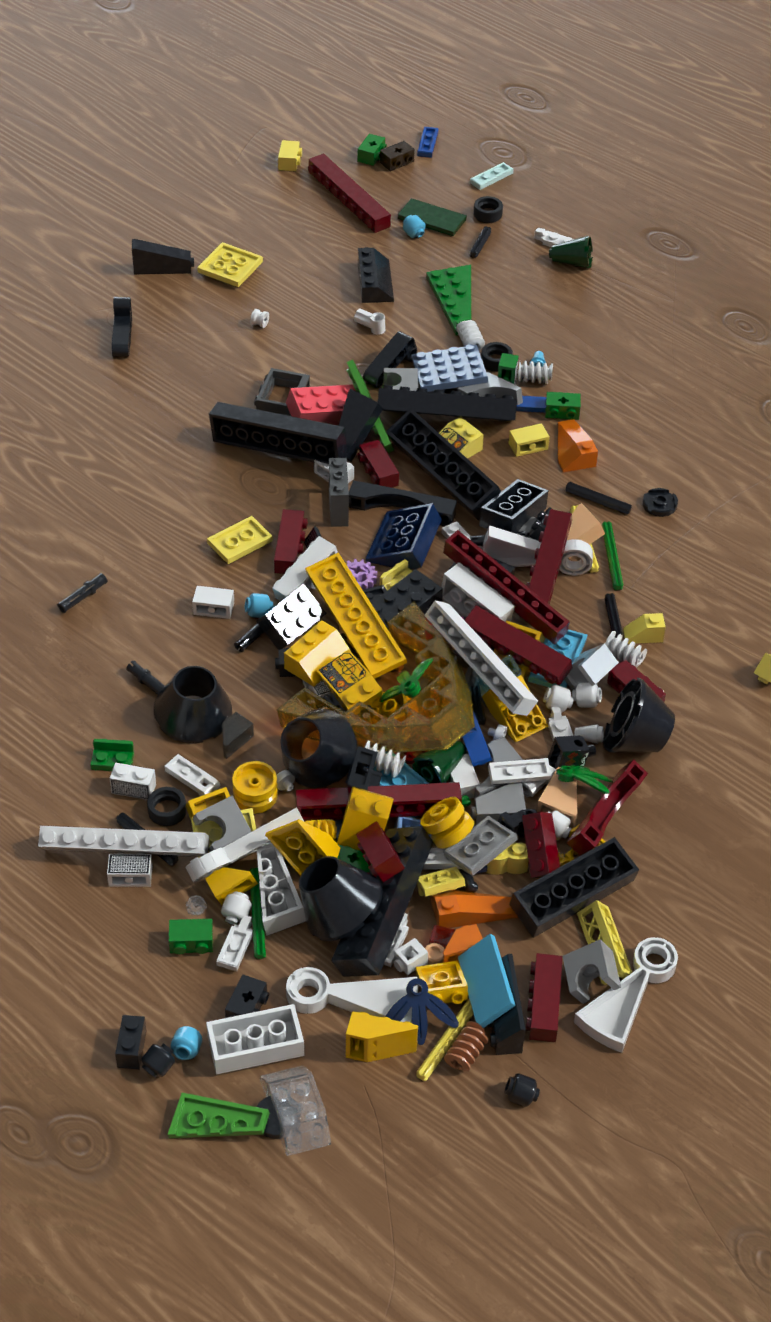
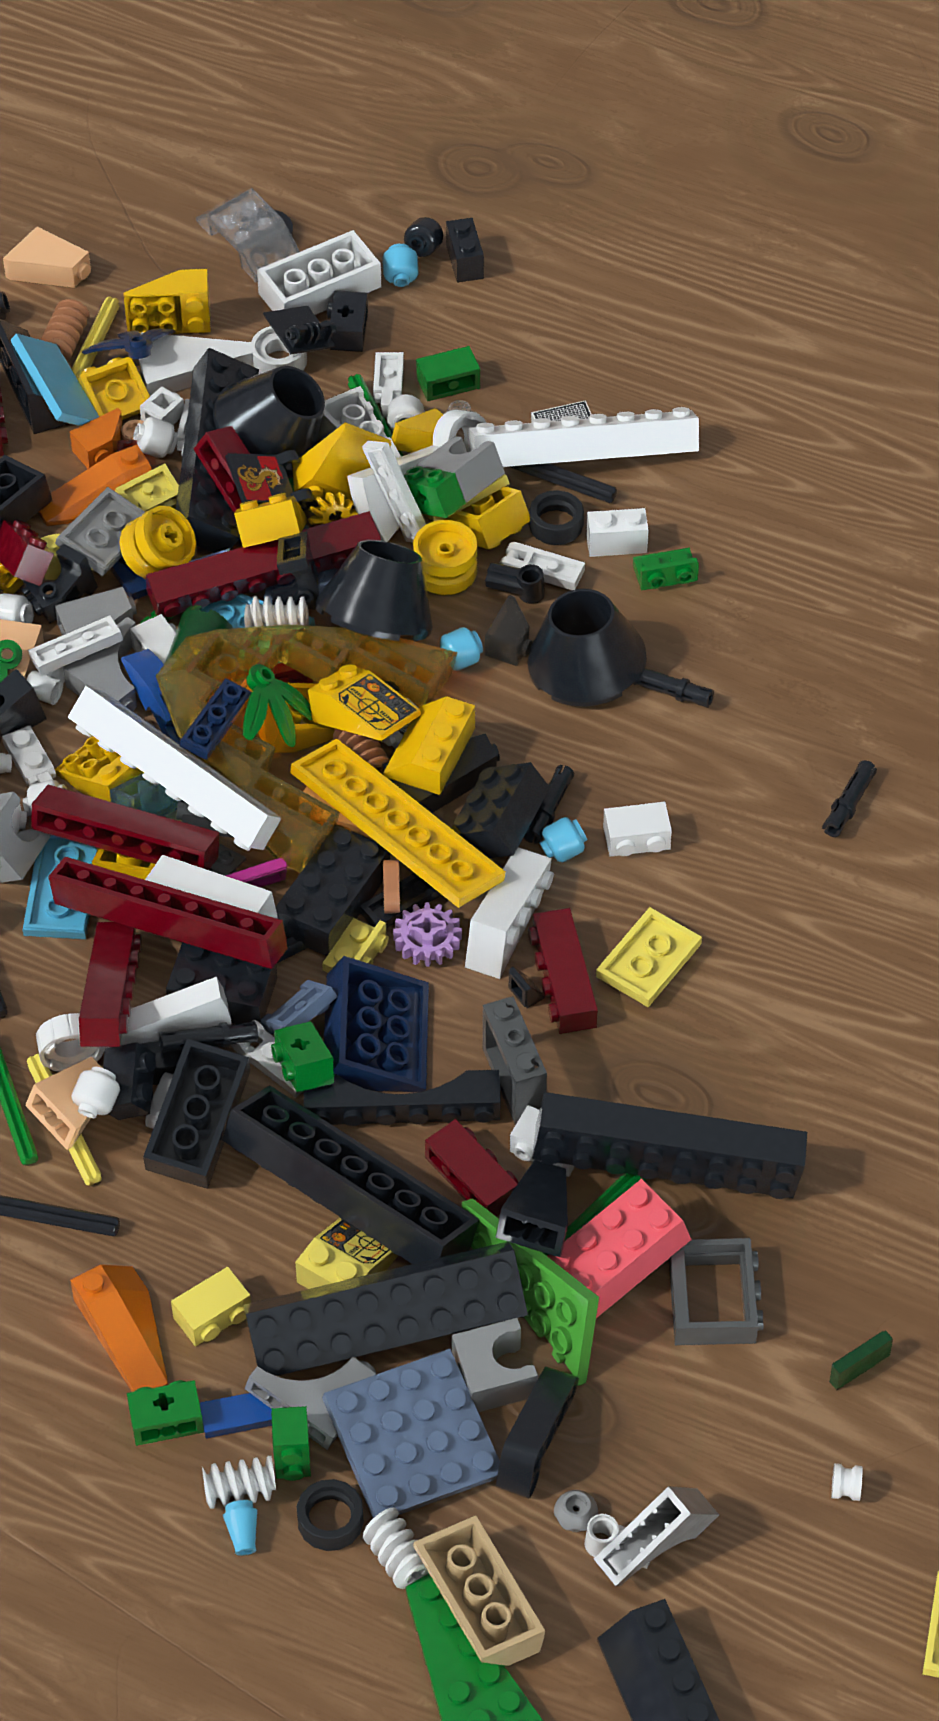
camera: 165 degrees right, 5 degrees up
(213, 1117) = (340, 207): bright green wing -> none
(214, 767) = (525, 581): none -> black piece
(228, 355) = (860, 1359): none -> dark green tile
(251, 808) = (435, 491): none -> green brick
(270, 728) = (467, 645): none -> medium azure head
(274, 807) = (394, 488): none -> white tile
(288, 982) = (301, 329): none -> black hinge
(348, 306) = (669, 1520): none -> light grey arch
(359, 837) = (264, 476): none -> flag
(371, 588) = (391, 886): none -> nougat beam
(383, 337) = (575, 1520): none -> light grey plate
(423, 929) = (156, 437): none -> white head
(435, 545) = (302, 1007): none -> sand blue plate
(441, 309) = (481, 1593): none -> tan slope
(447, 667) = (215, 719): none -> dark blue tile
(448, 505) = (303, 1056): none -> green brick
(464, 1125) = (47, 260): none -> light nougat slope
(570, 506) = (95, 1092): none -> white head

